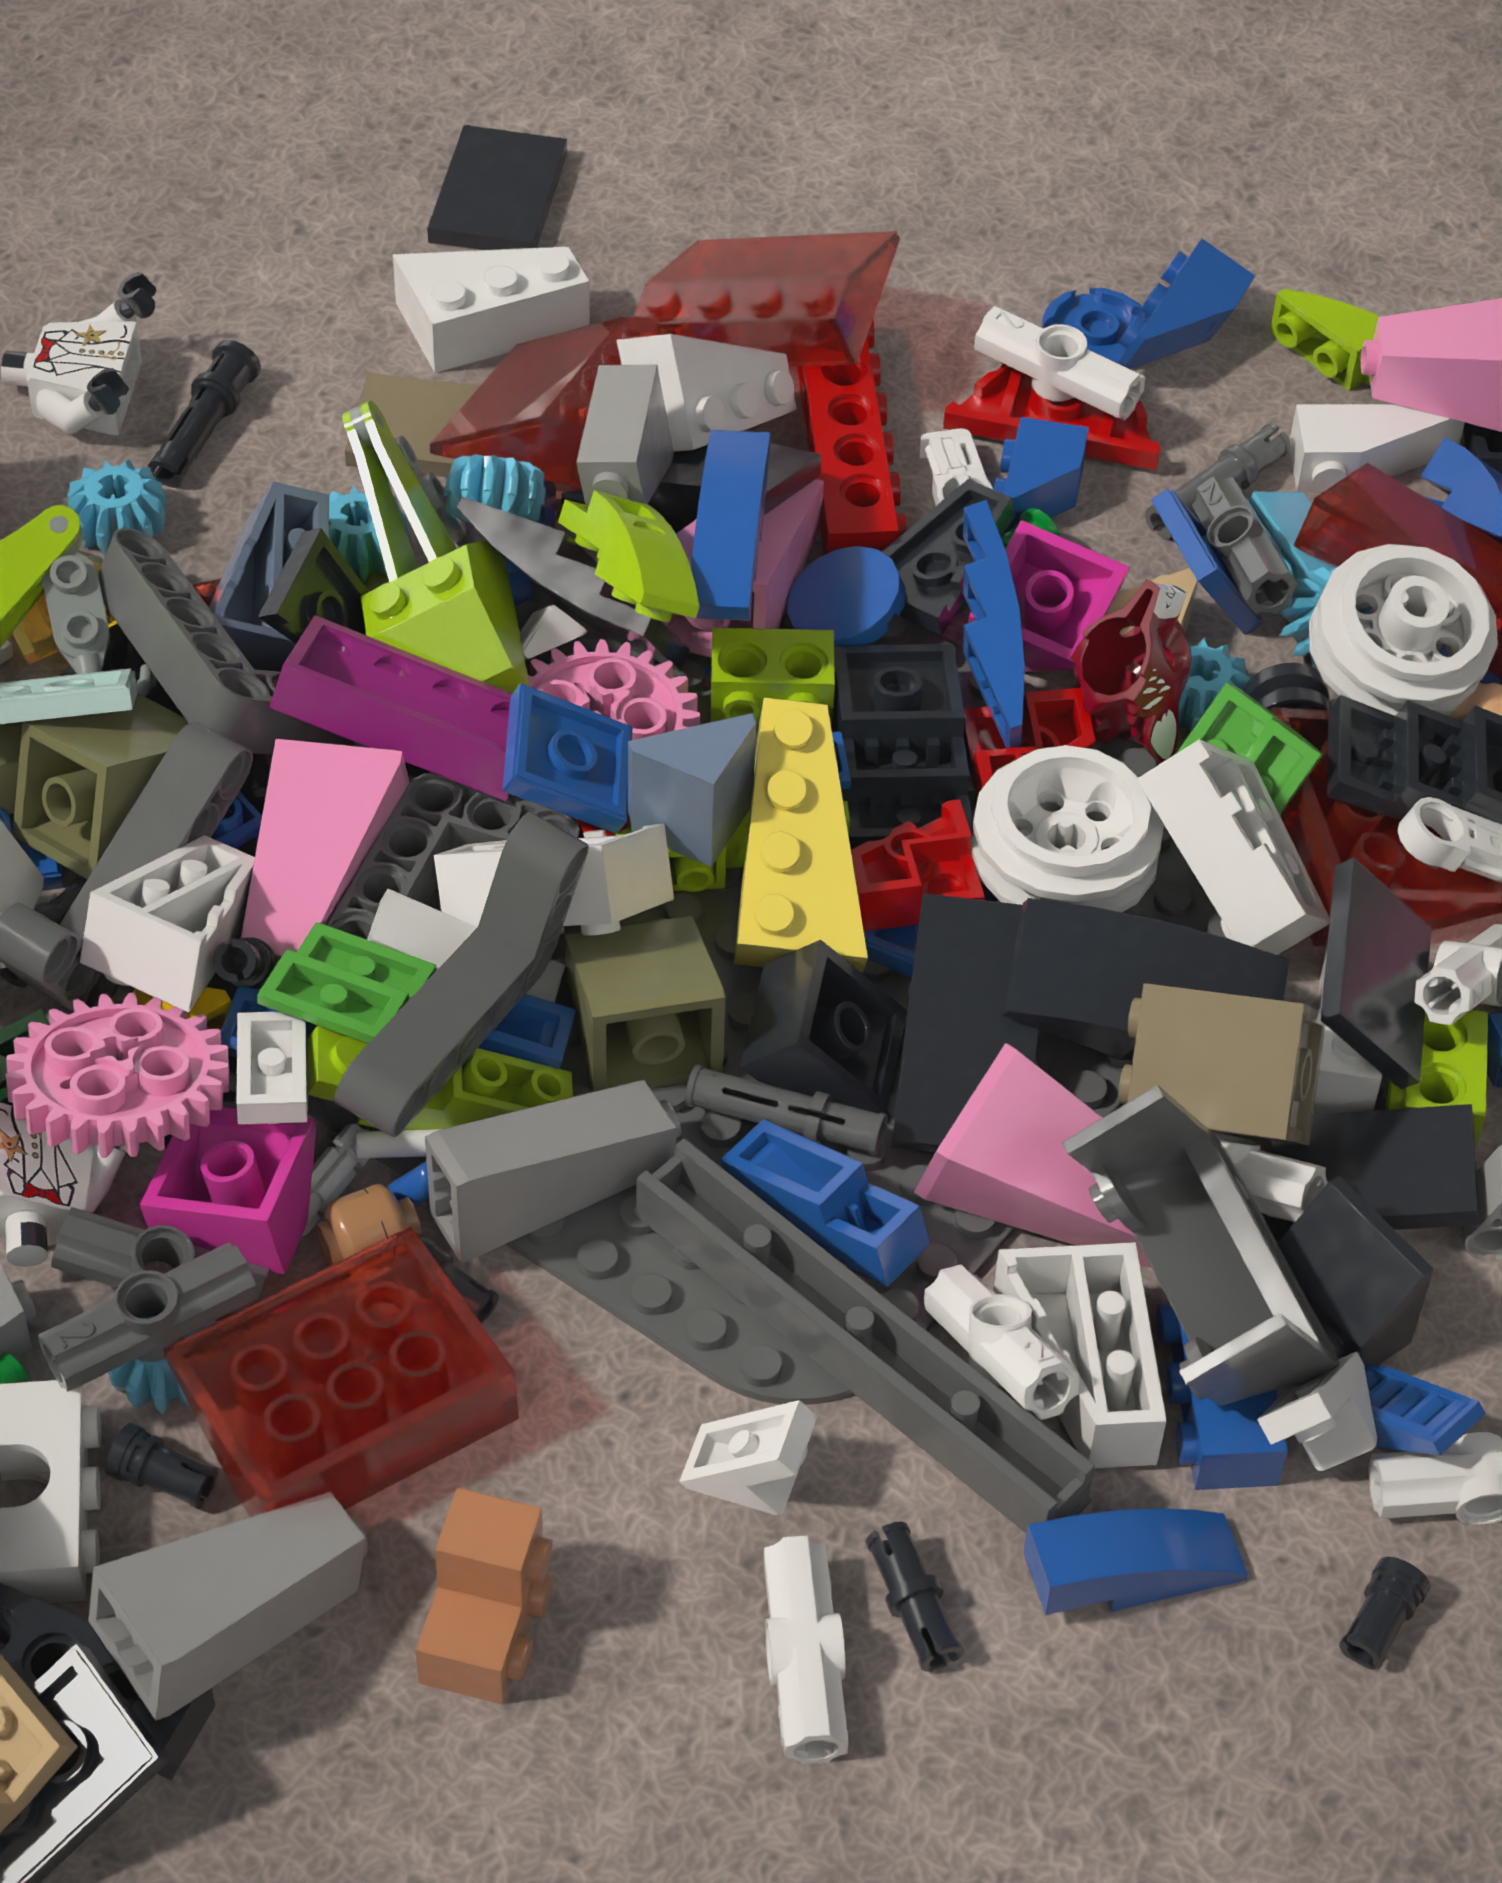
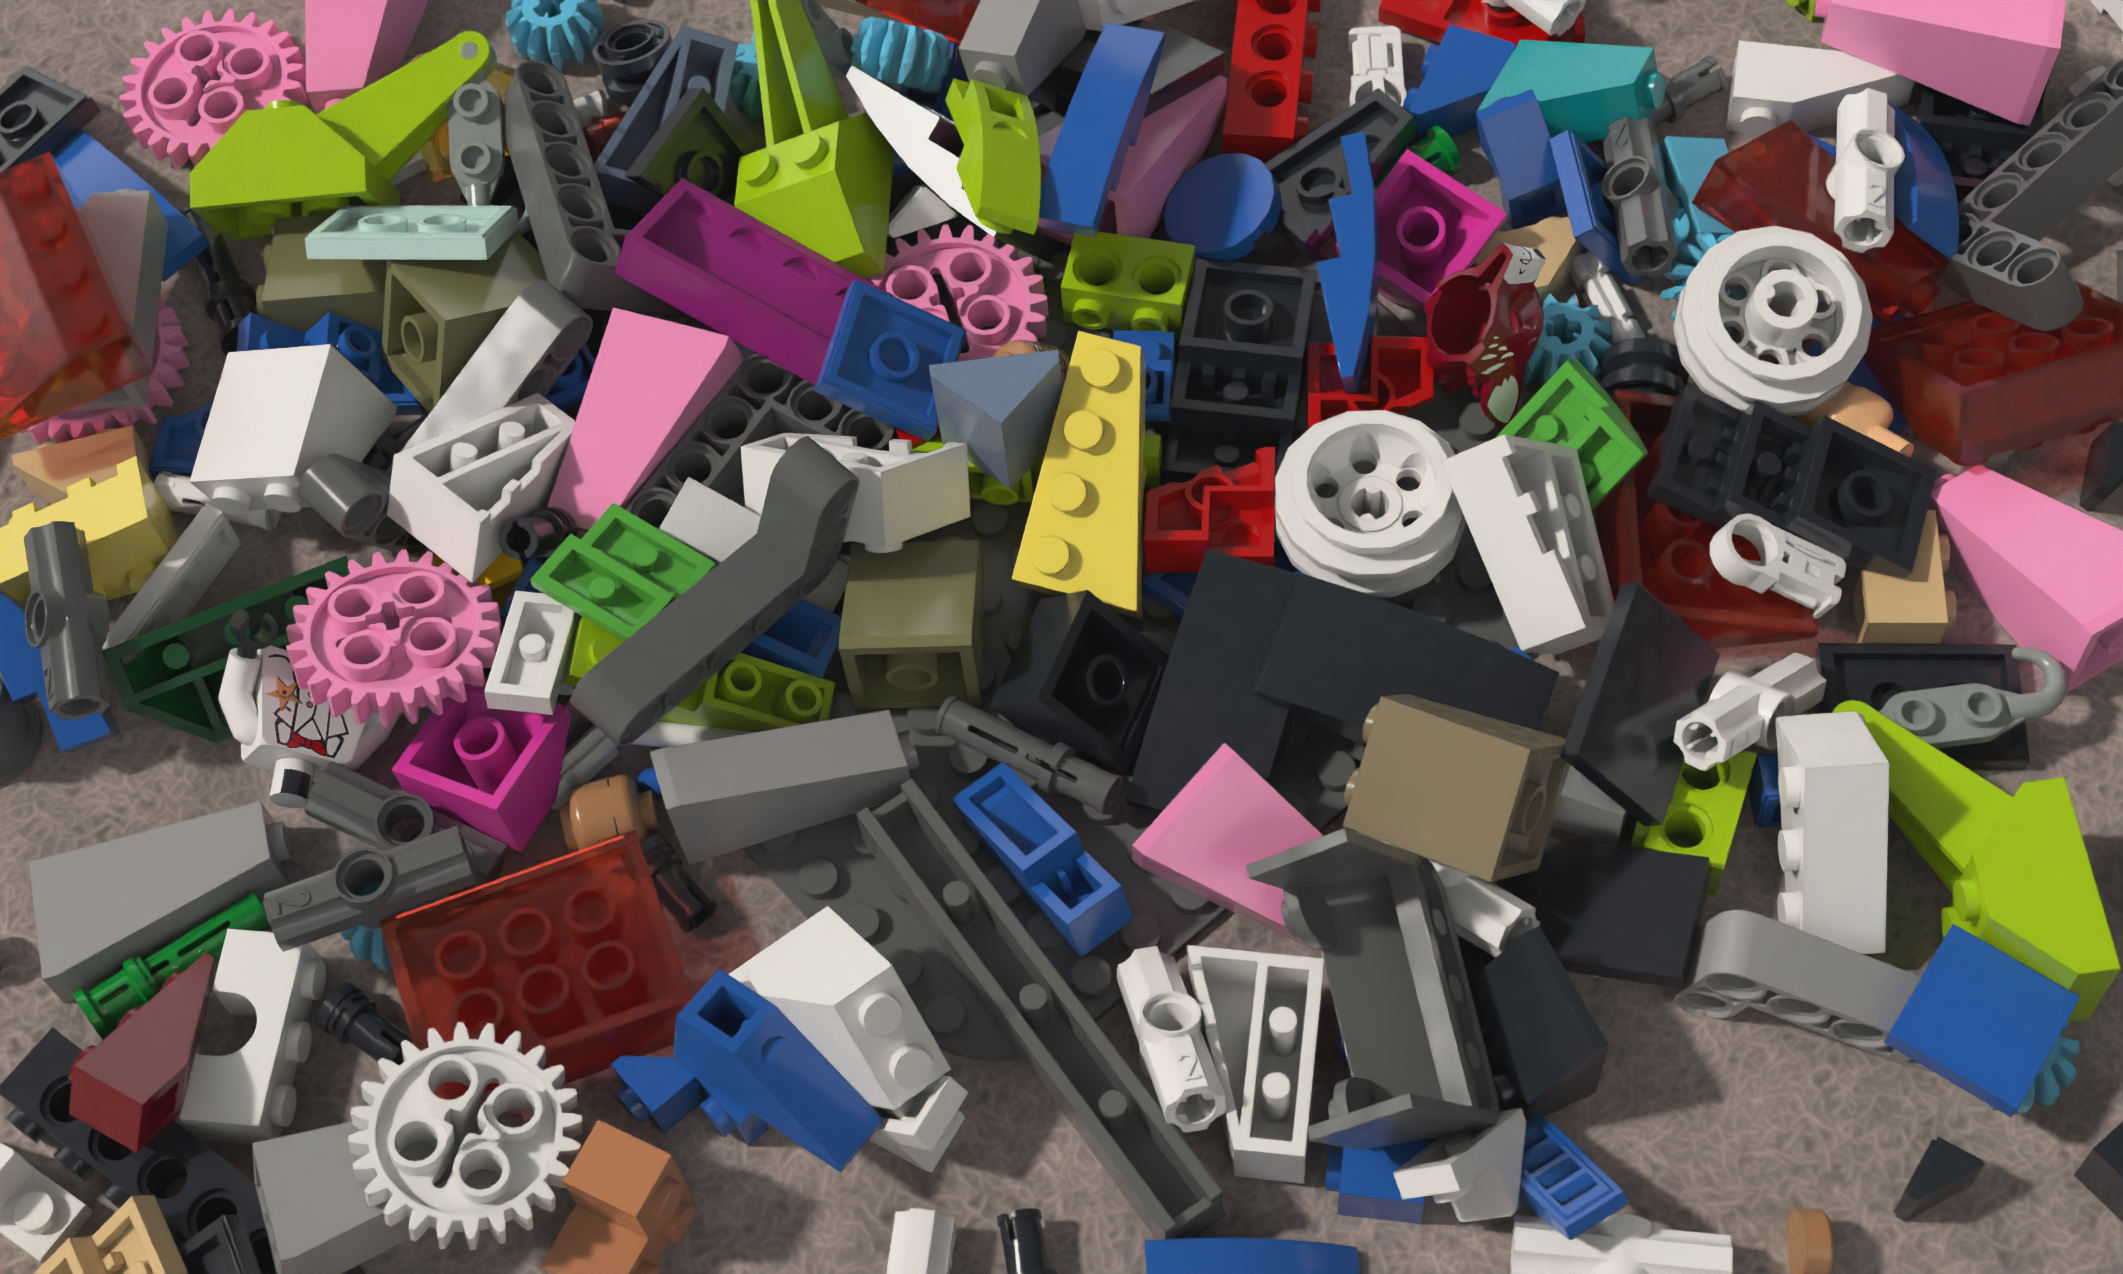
camera: 20 degrees right, 10 degrees up
(209, 530) = (629, 56): none -> black wheel
(253, 1507) = (409, 1112): none -> white gear
(512, 1462) = (669, 1092): none -> blue slope
(613, 1418) = (772, 1070): none -> blue slope
(666, 1366) = (848, 1008): none -> white slope
(1125, 520) = (1521, 158): none -> blue slope
(1139, 459) = (1582, 84): none -> teal slope
(1207, 623) = (1603, 290): none -> white axle
(1452, 494) = (1865, 171): none -> white piece

